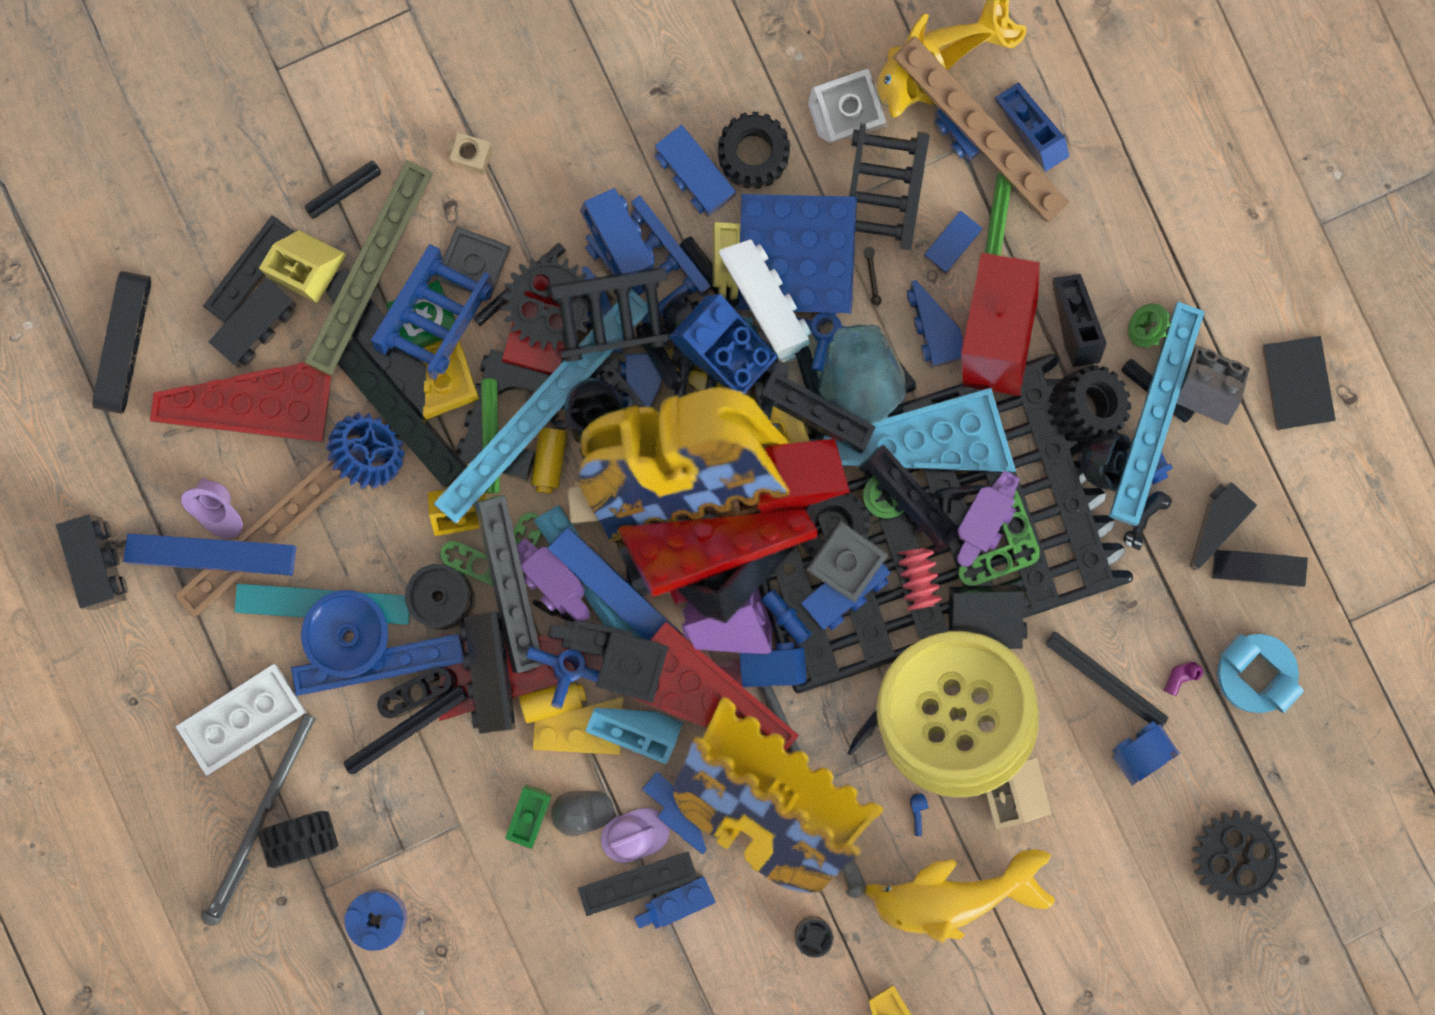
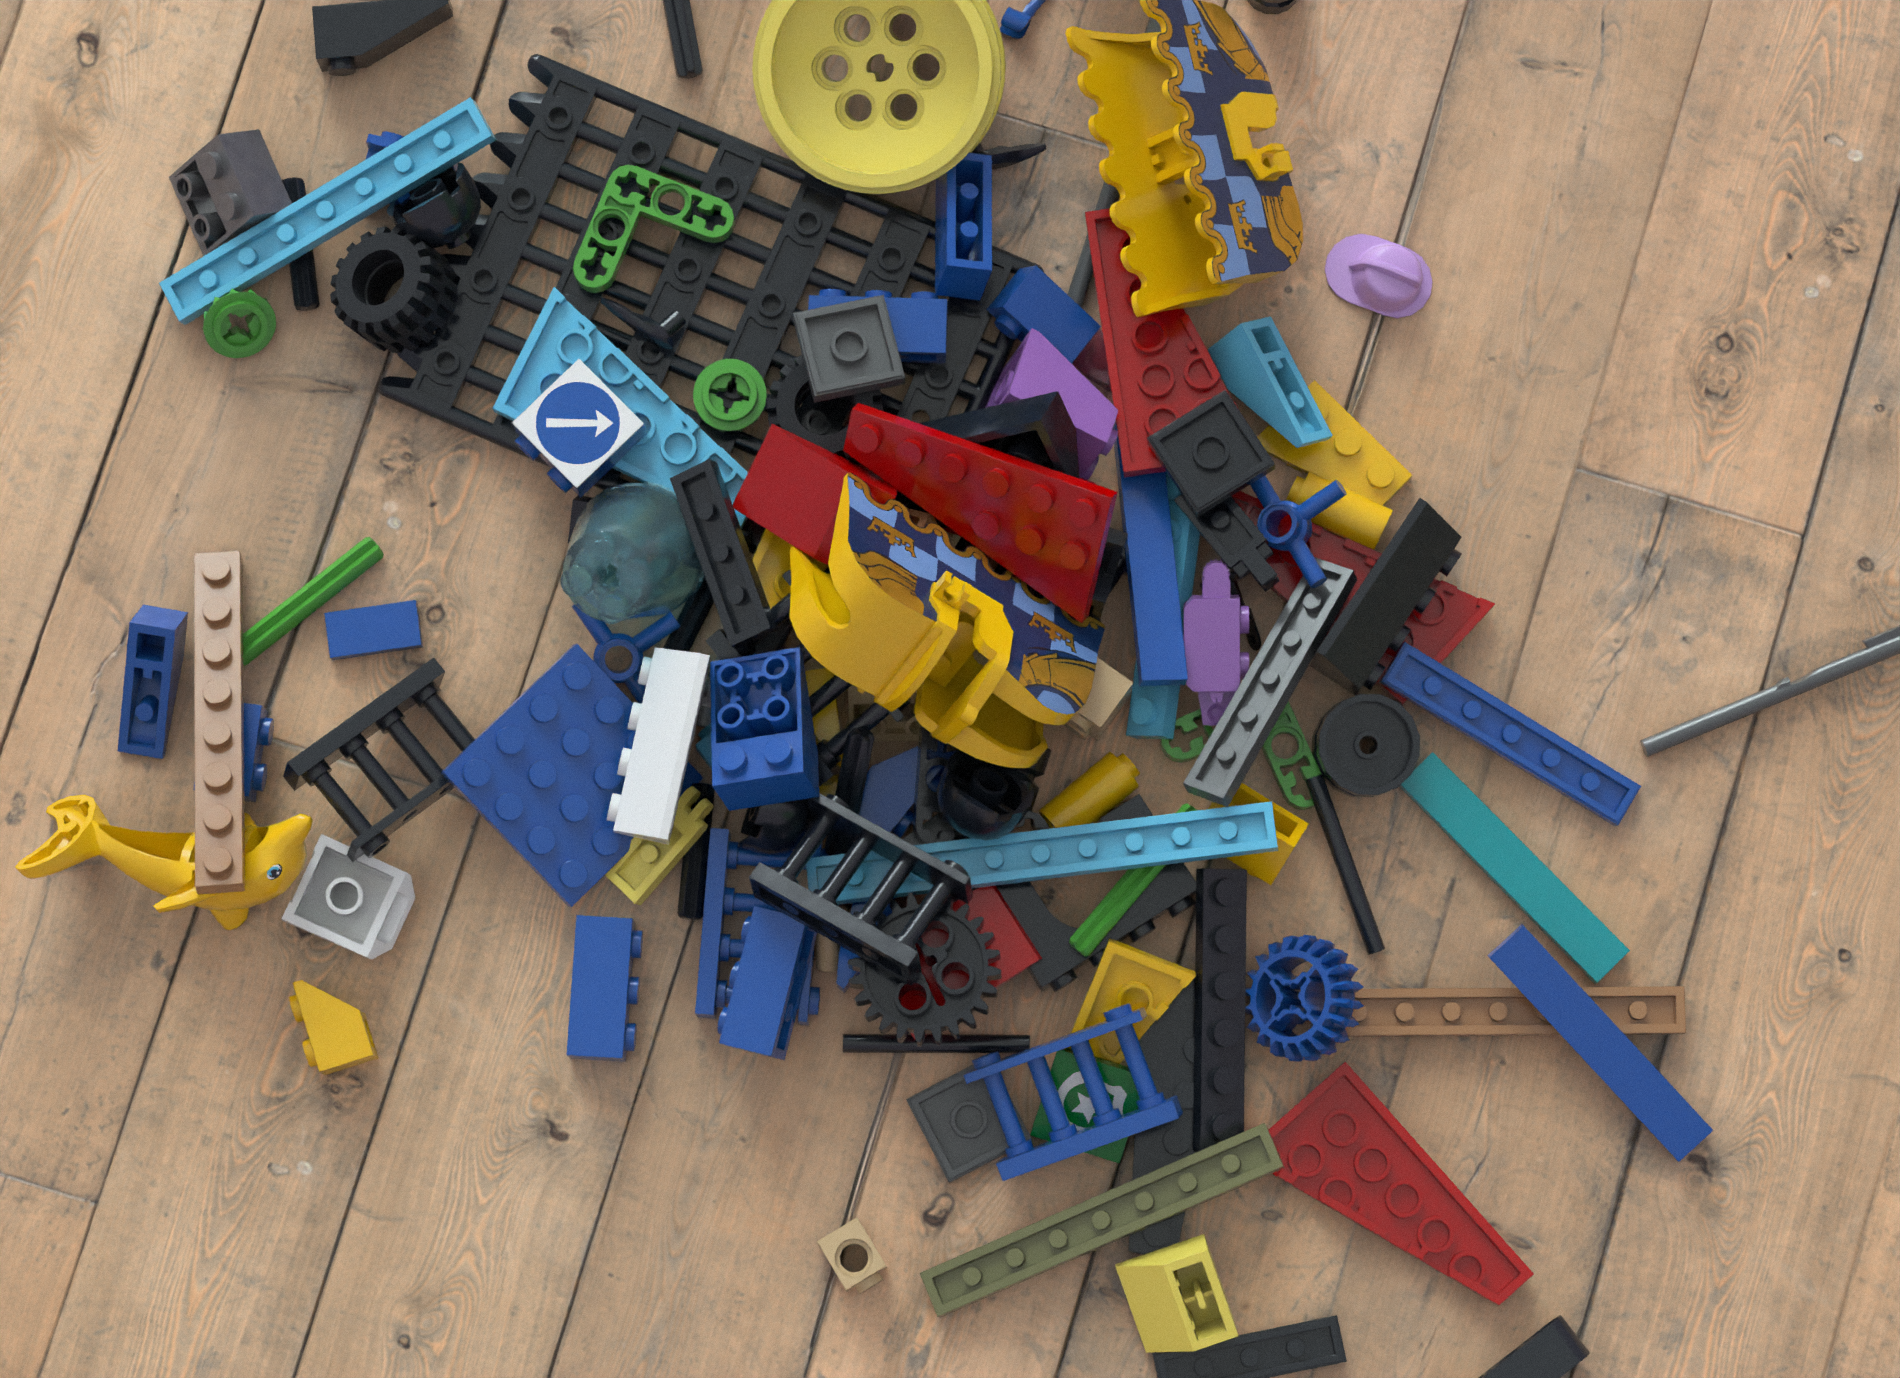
camera: 135 degrees left, 5 degrees down
(92, 562) = (1752, 1157): black brick -> none
(211, 507) = (1548, 1098): lavender piece -> none
(241, 719) = (1731, 815): white plate -> none
(253, 324) = (1303, 1280): black brick -> none
(298, 839) = (1785, 606): black tyre -> none
(330, 621) = (1552, 807): blue dish -> none
(342, 189) = (1047, 1353): black axle -> none
(372, 936) = (1750, 453): blue brick -> none
(402, 534) = (1345, 864): none -> black bar
(405, 729) = (1544, 628): black axle -> none
(429, 693) = (1518, 681): black beam -> none
(528, 816) = (1485, 401): green plate -> none
(581, 812) = (1418, 356): dark grey piece -> none
(637, 883) = (1425, 215): black plate -> none
(663, 793) = (1314, 261): blue slope -> none
(676, 904) = (1401, 155): blue hinge -> none
(749, 126) = (475, 924): black tyre -> none
(786, 617) = (976, 358): blue pin -> none
(800, 45) = (335, 1030): none -> yellow slope
(847, 673) = (964, 228): none -> blue brick
(869, 253) = (484, 706): dark brown hinge -> none
(910, 497) = (705, 363): black hinge -> none
(919, 578) = (778, 262): coral piece -> none
(939, 410) = (578, 429): none -> piece
(940, 332) = (490, 534): blue slope -> none
(985, 518) = (640, 259): medium lavender hinge -> none
(990, 612) = (736, 155): black brick -> none
(1000, 323) = (412, 461): red container -> none
(1078, 321) = (315, 403): black slope -> none
(1154, 502) = (417, 114): black arm -> none
(1298, 383) = (129, 109): black tile -> none

